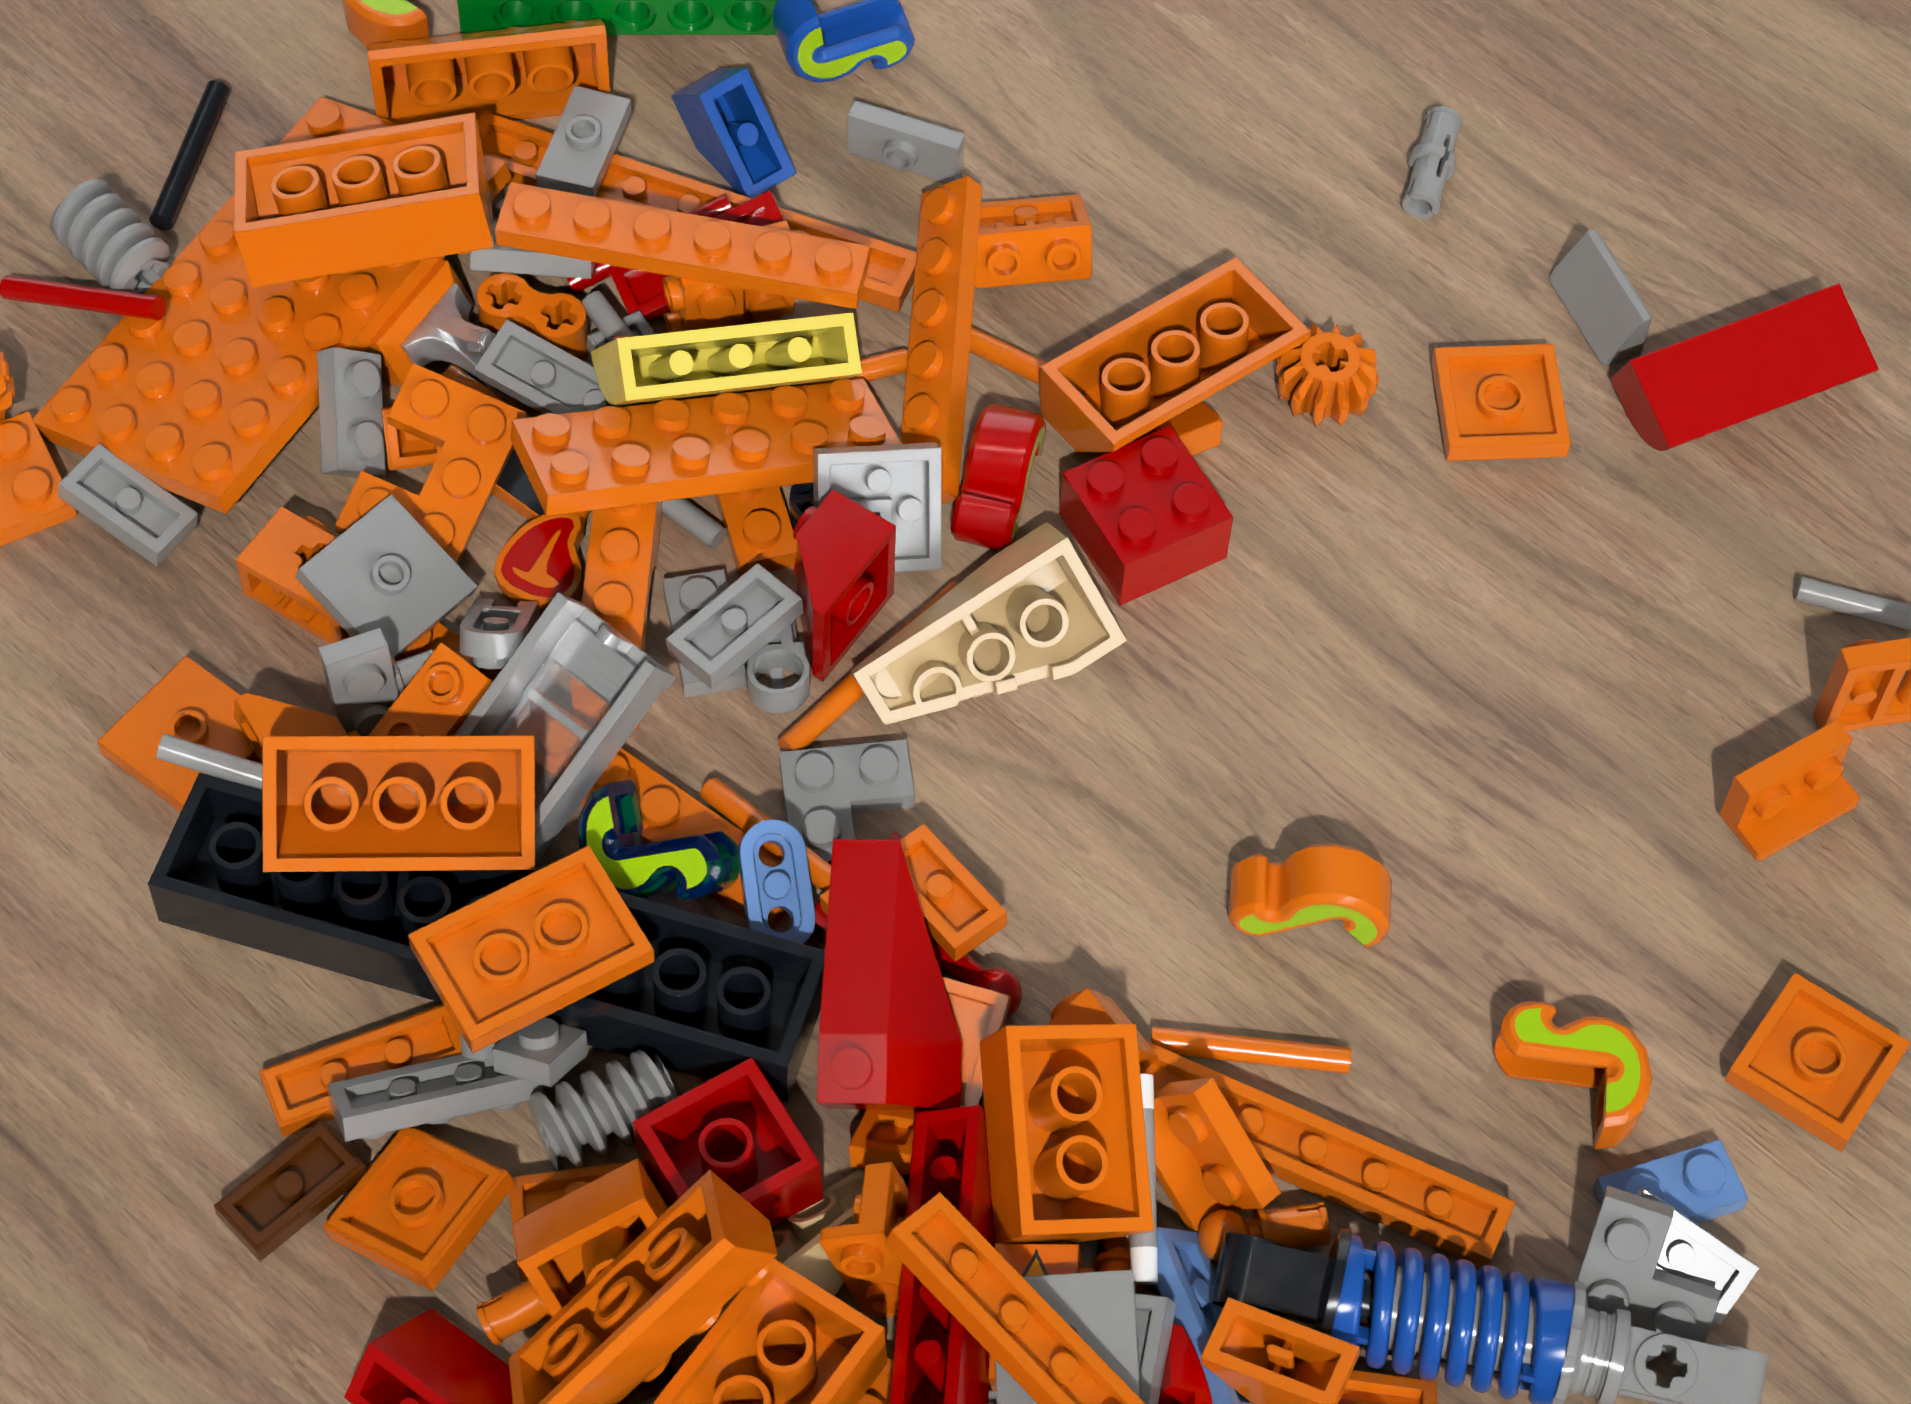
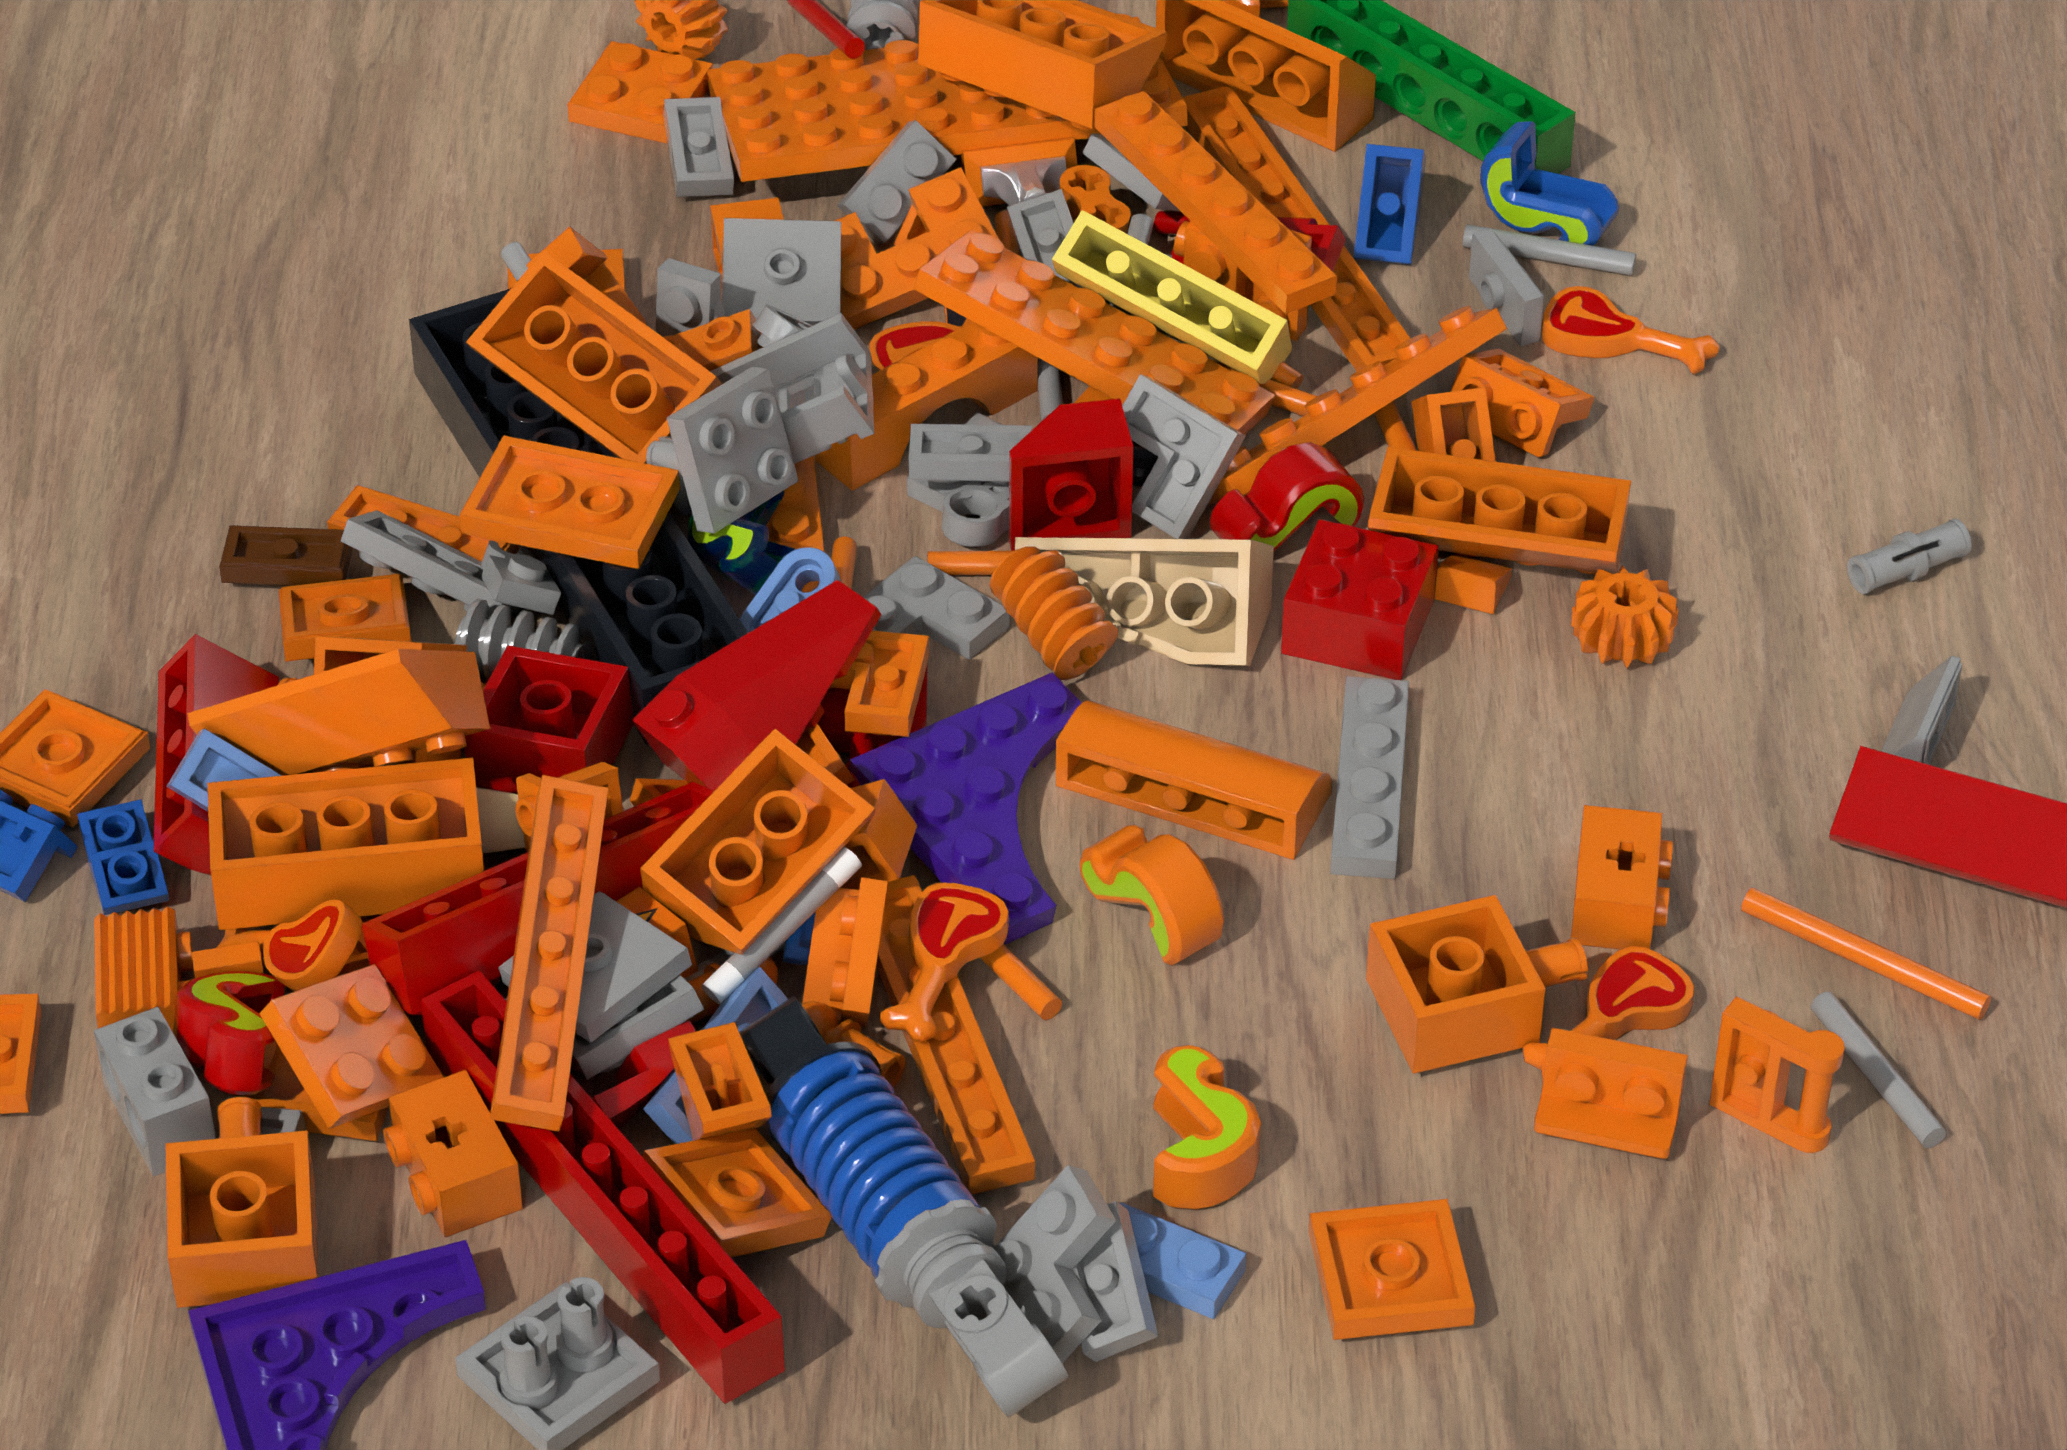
camera: 50 degrees right, 15 degrees down
(239, 725) = (575, 253): none -> orange slope
(584, 142) = (1267, 138): light grey plate -> none
(612, 792) = (728, 449): none -> light grey plate
(881, 81) = (1560, 251): none -> light grey bar
(962, 715) = (1053, 610): none -> orange piece
(1003, 129) = (1589, 325): none -> orange piece
(1038, 309) = (1454, 424): none -> orange slope
(1077, 933) = (964, 791): none -> dark purple plate
(1209, 773) = (1190, 779): none -> orange brick
(1240, 1055) = (945, 932): none -> orange piece
(1314, 662) = (1369, 778): none -> light grey plate
(1500, 402) = (1741, 725): orange plate -> none
(1581, 604) = (1618, 878): none -> orange brick
(1605, 786) = (1462, 982): none -> orange brick
(1683, 690) = (1630, 993): none -> orange piece
(1776, 524) = (1866, 953): none -> orange bar

